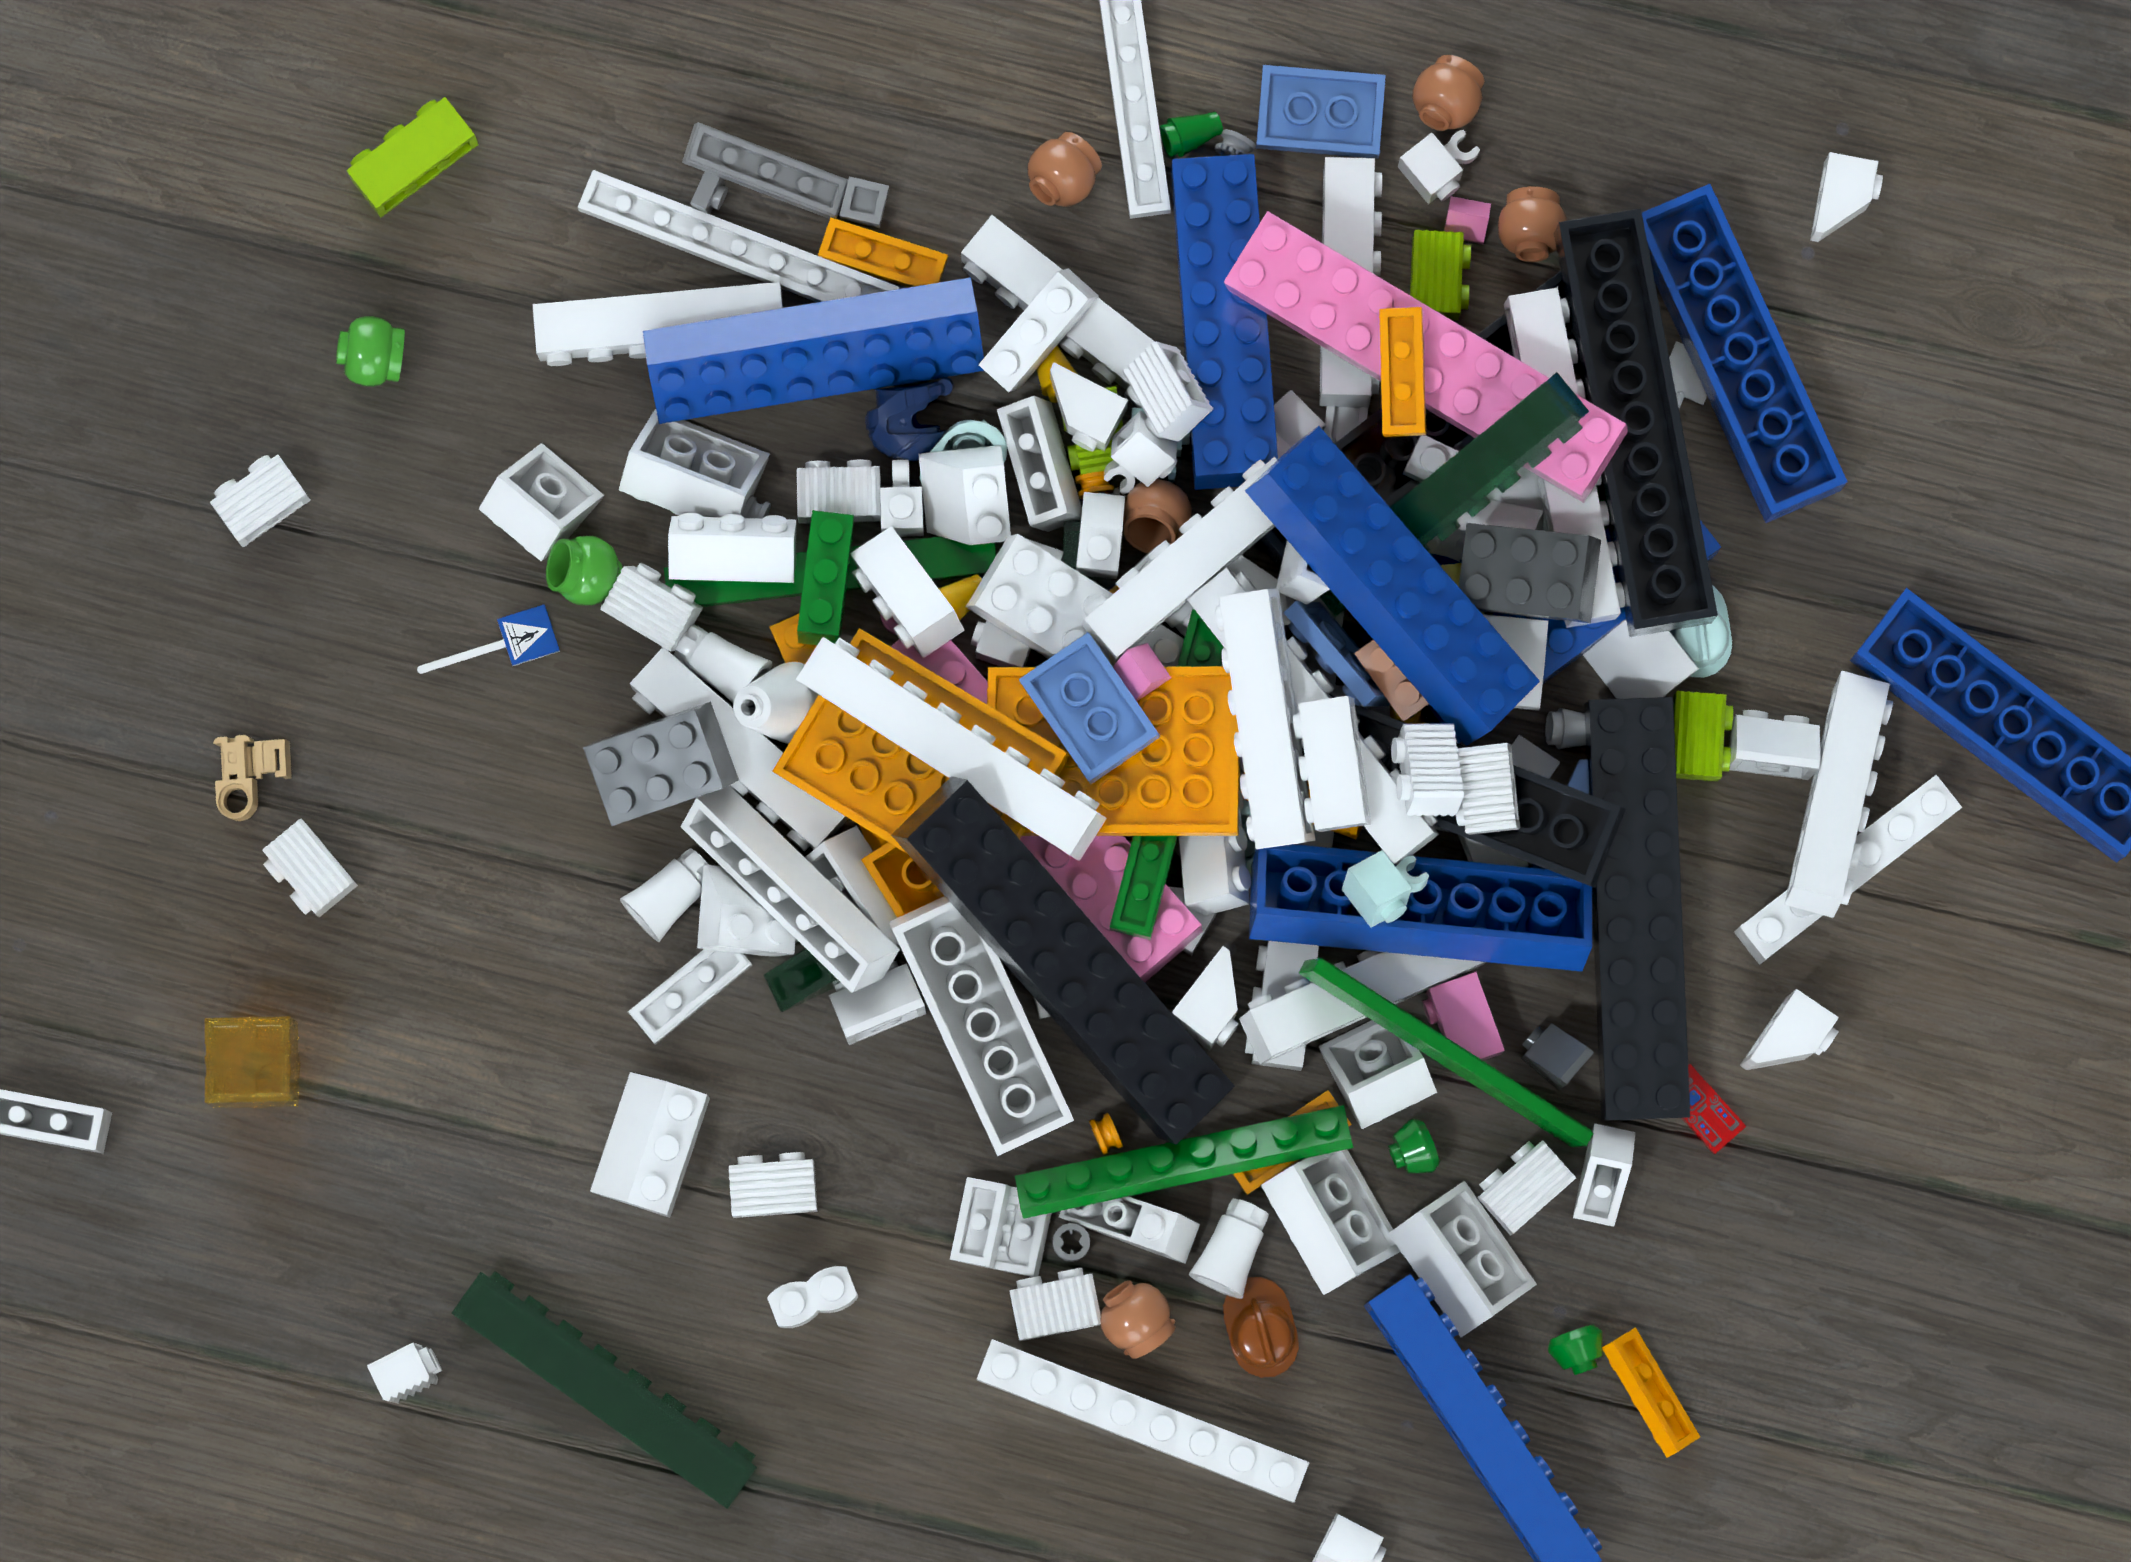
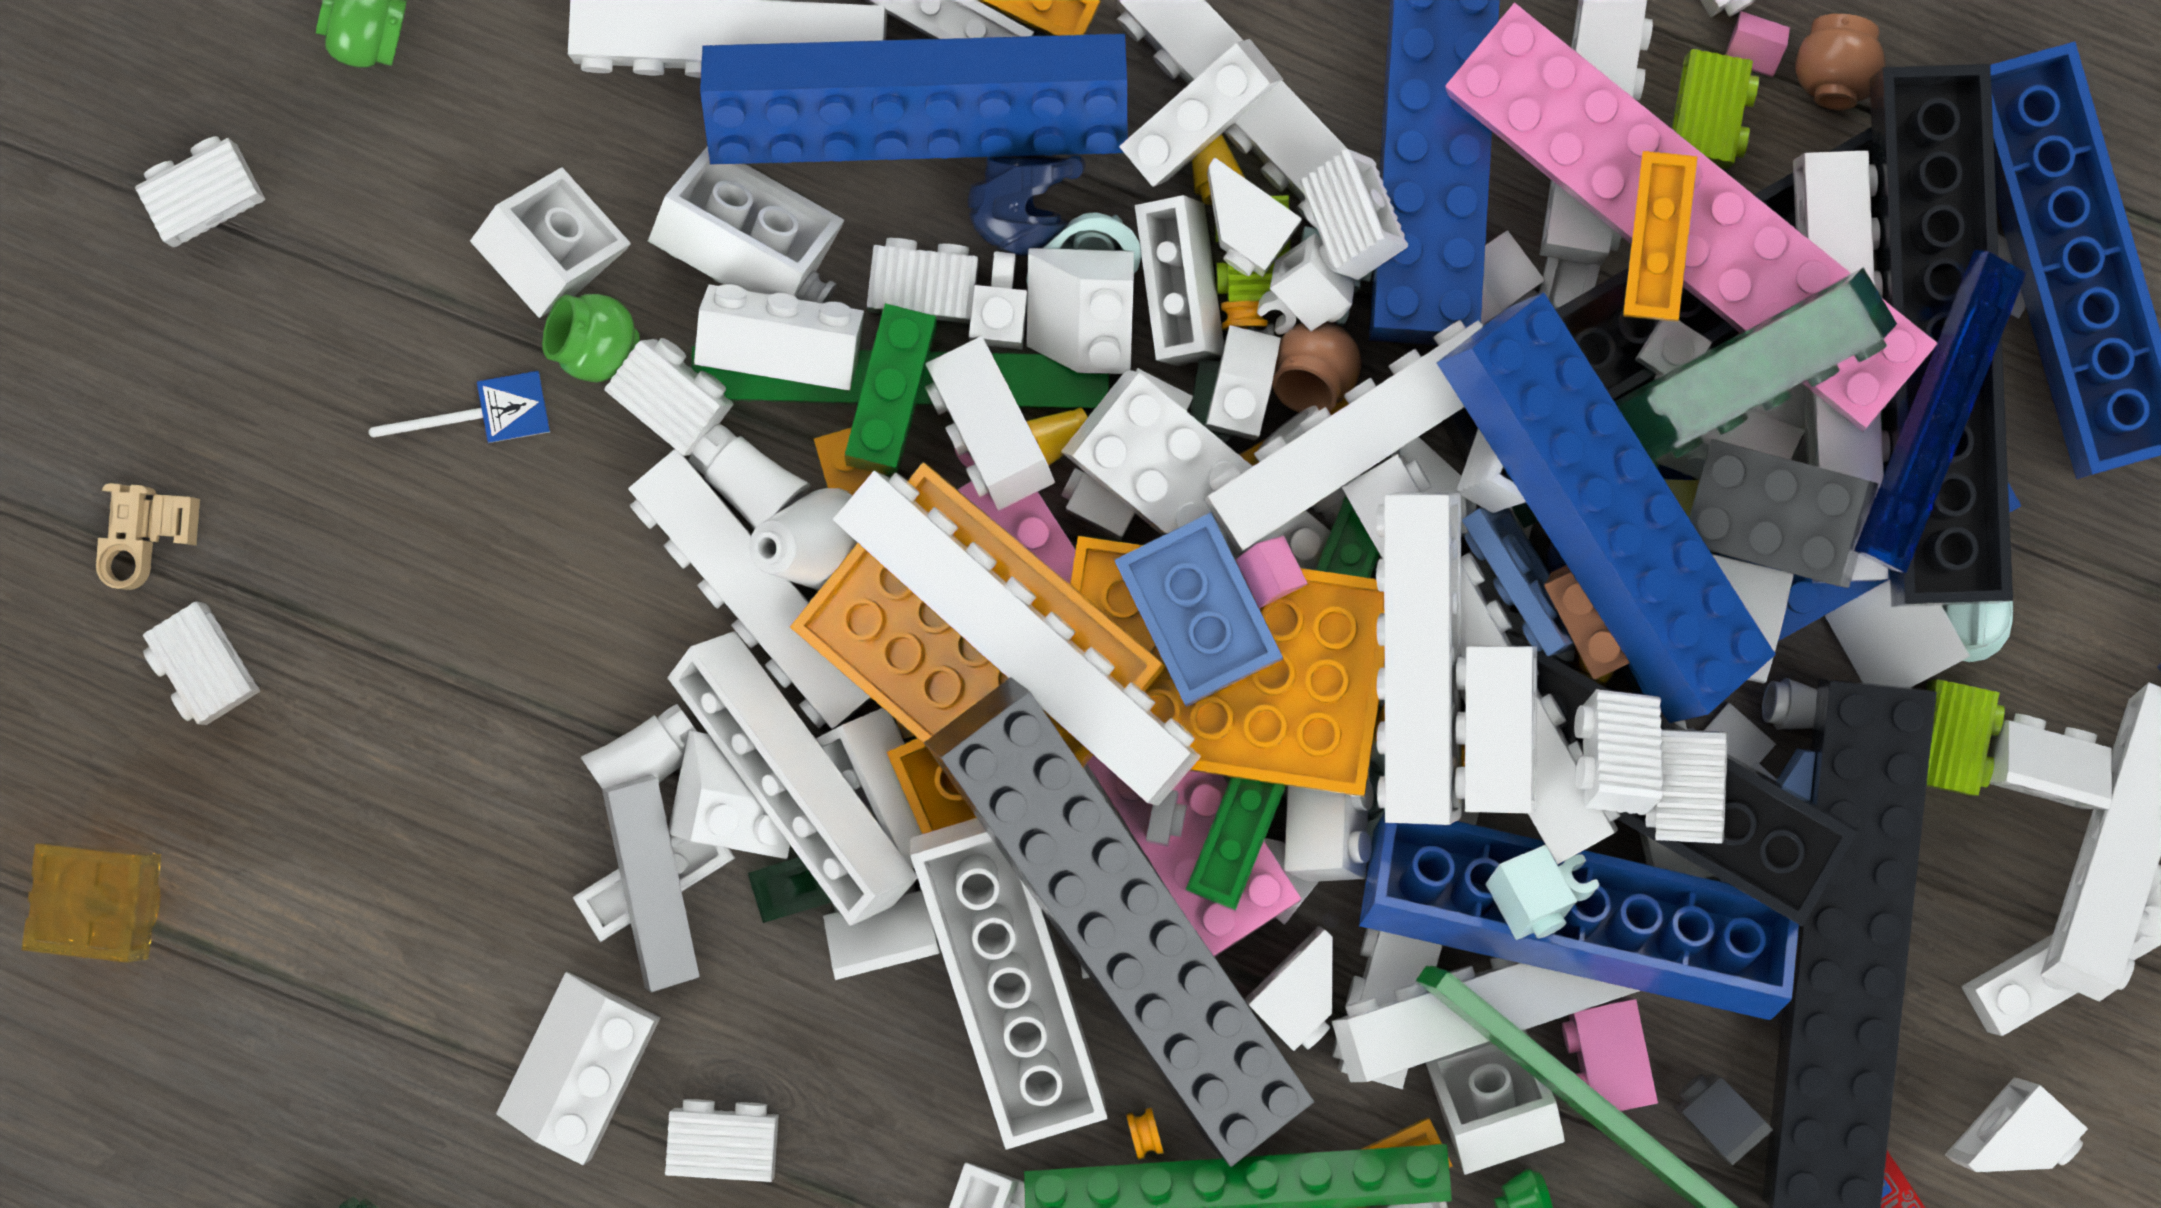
camera: 10 degrees right, 5 degrees up
(661, 763) = (652, 597): brick -> none
(689, 989) = (650, 883): none -> light grey tile
(1086, 875) = (1166, 820): none -> light grey plate
(1638, 477) = (1940, 411): none -> clear blue plate

